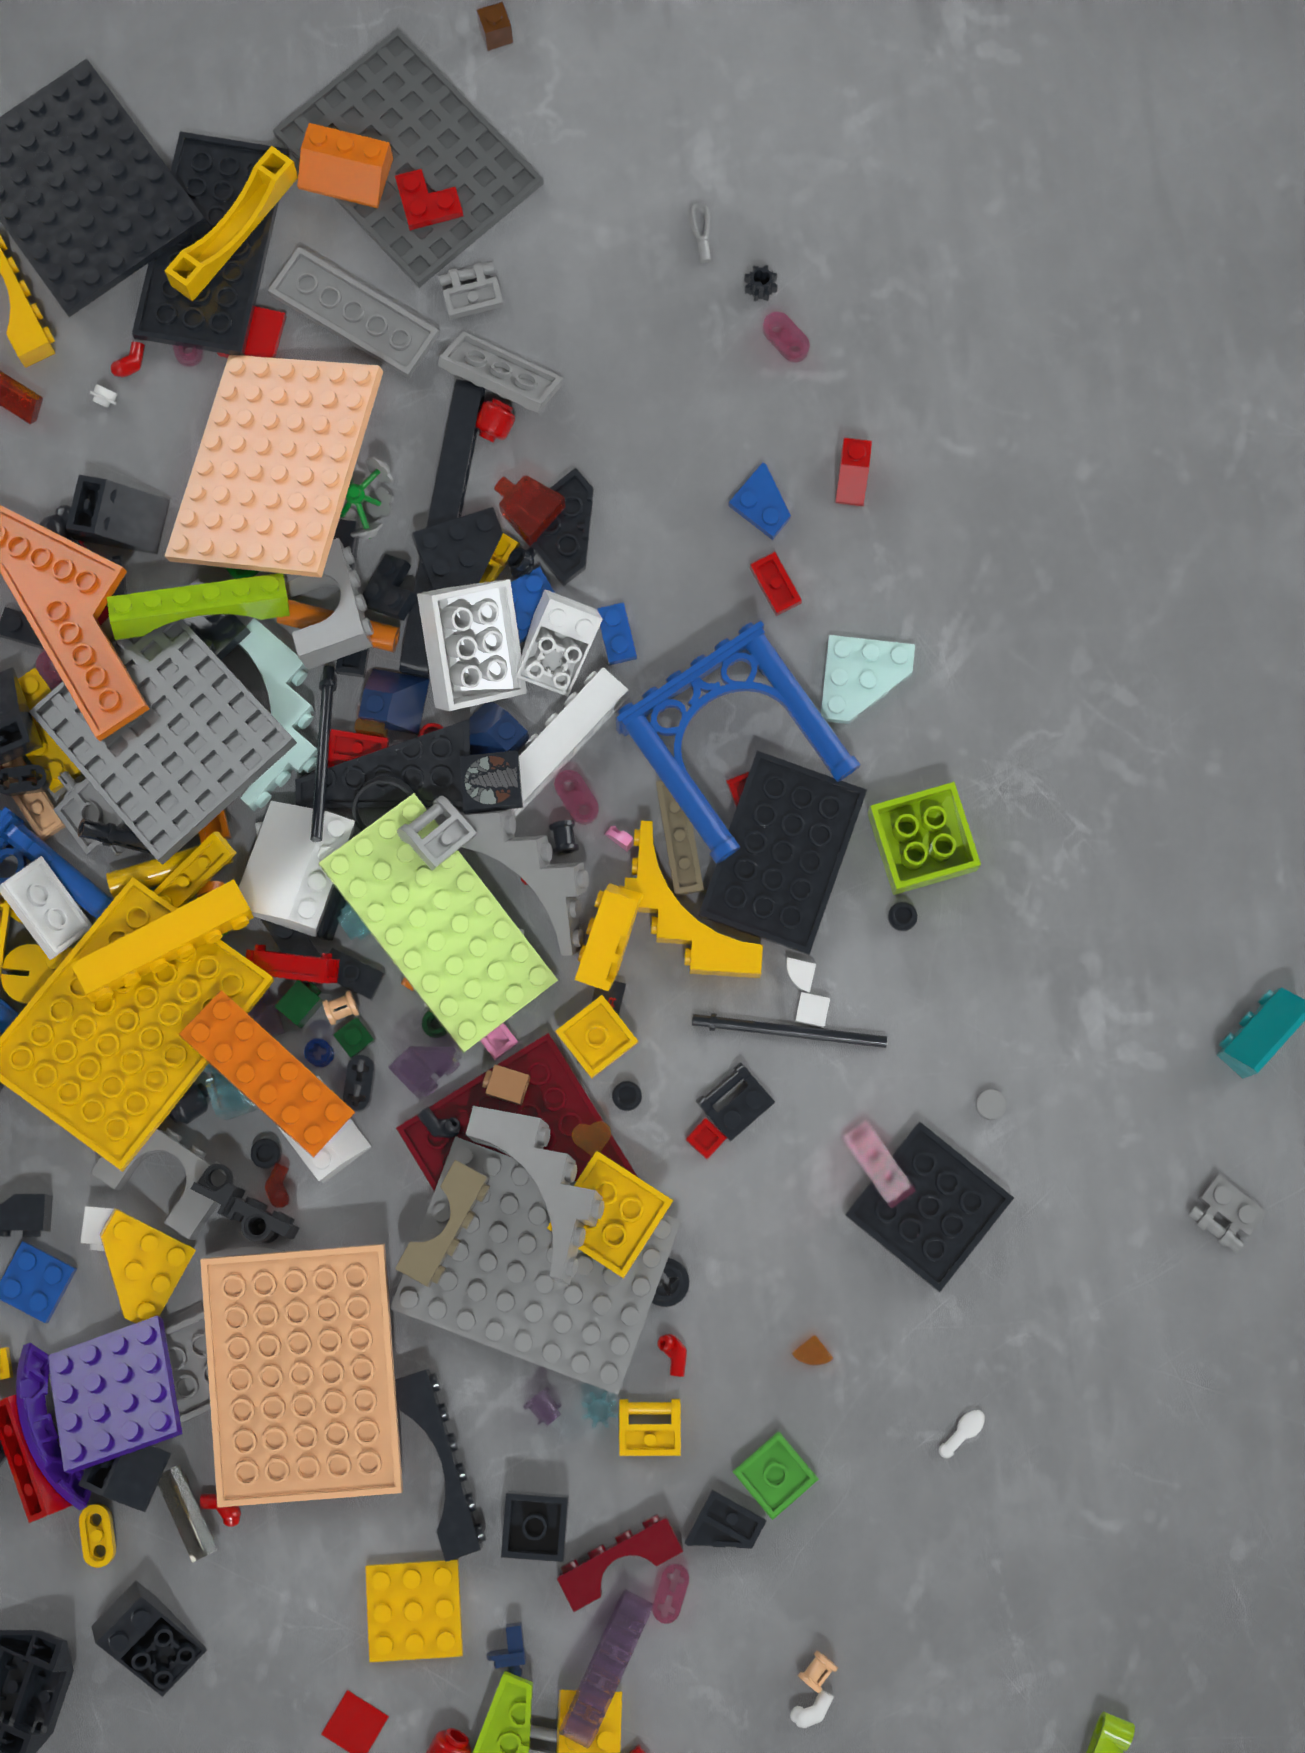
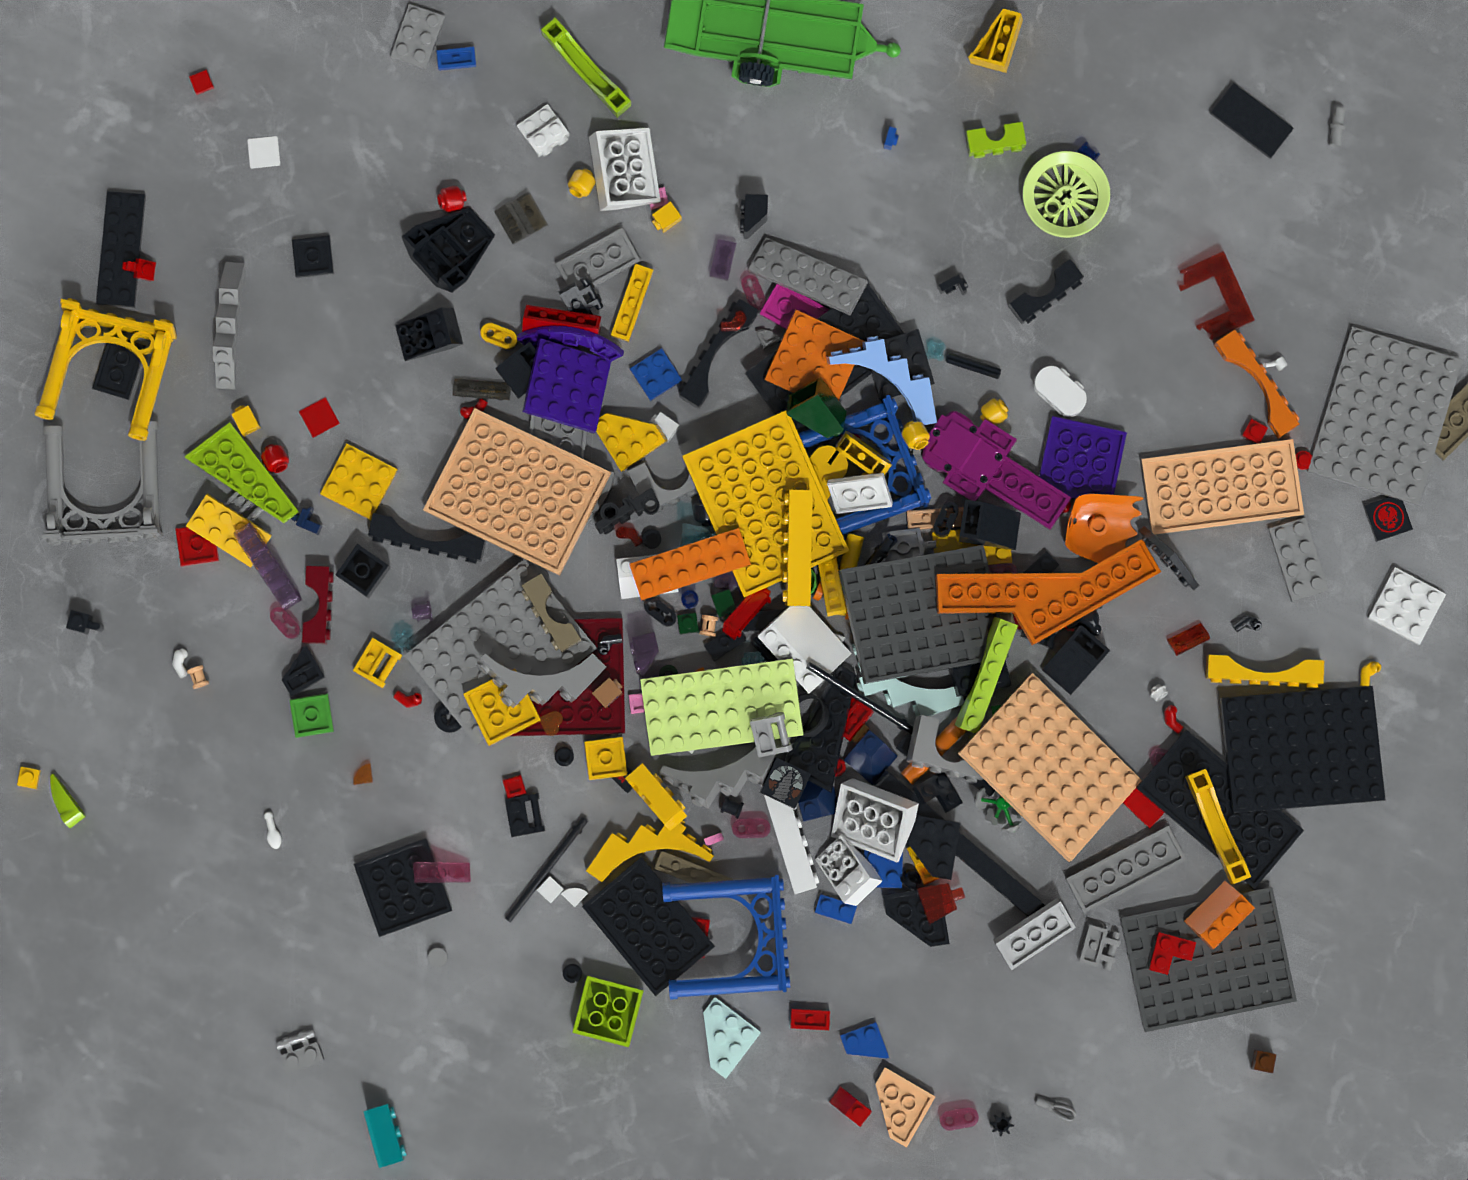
camera: 120 degrees right, 5 degrees up
(495, 420) = (1007, 913): red head -> none
(812, 413) = (902, 1105): none -> light nougat plate

